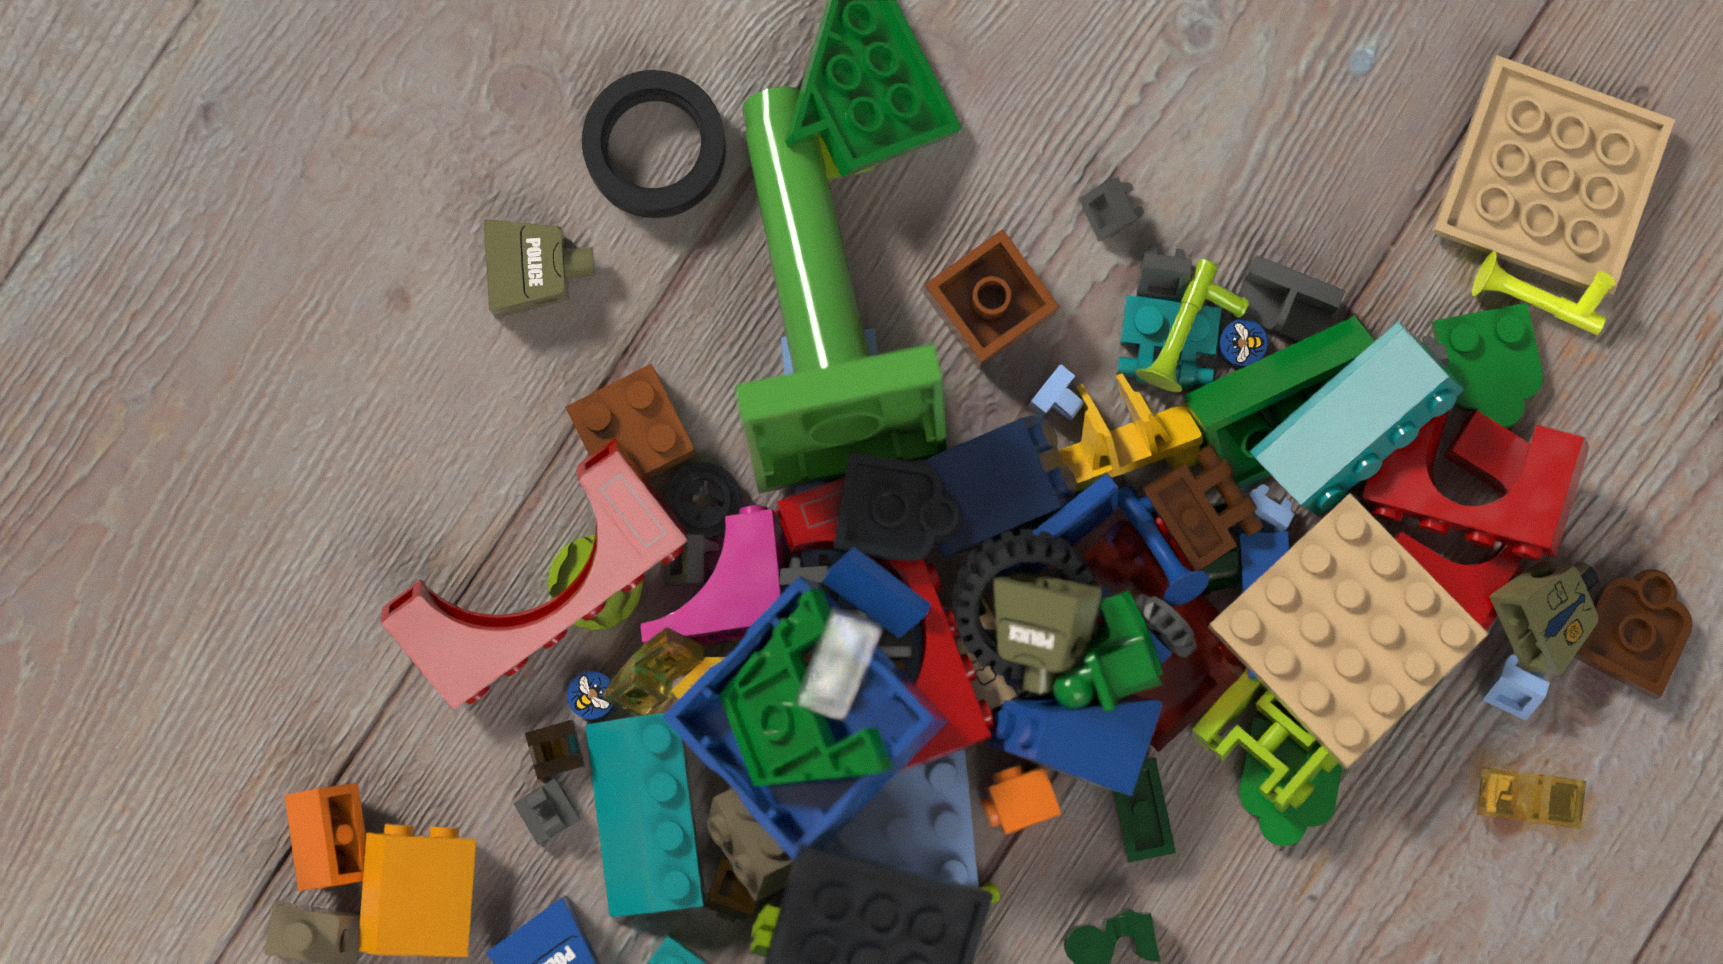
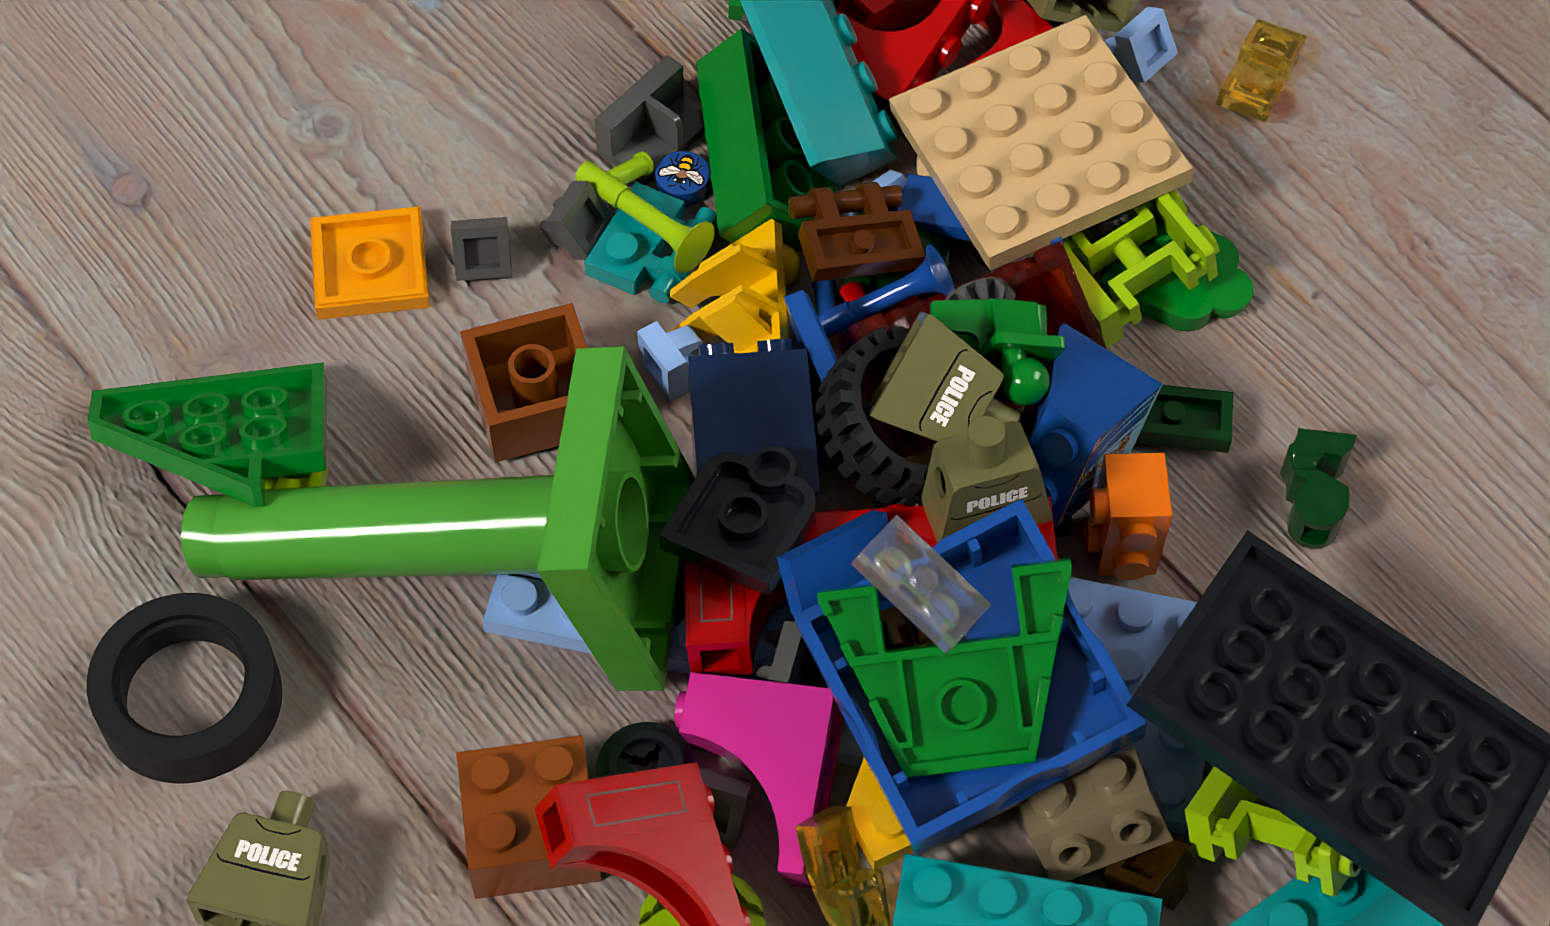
camera: 70 degrees left, 25 degrees down
(967, 686) = (981, 474): none -> olive torso
(1073, 123) = (369, 262): none -> light orange tile

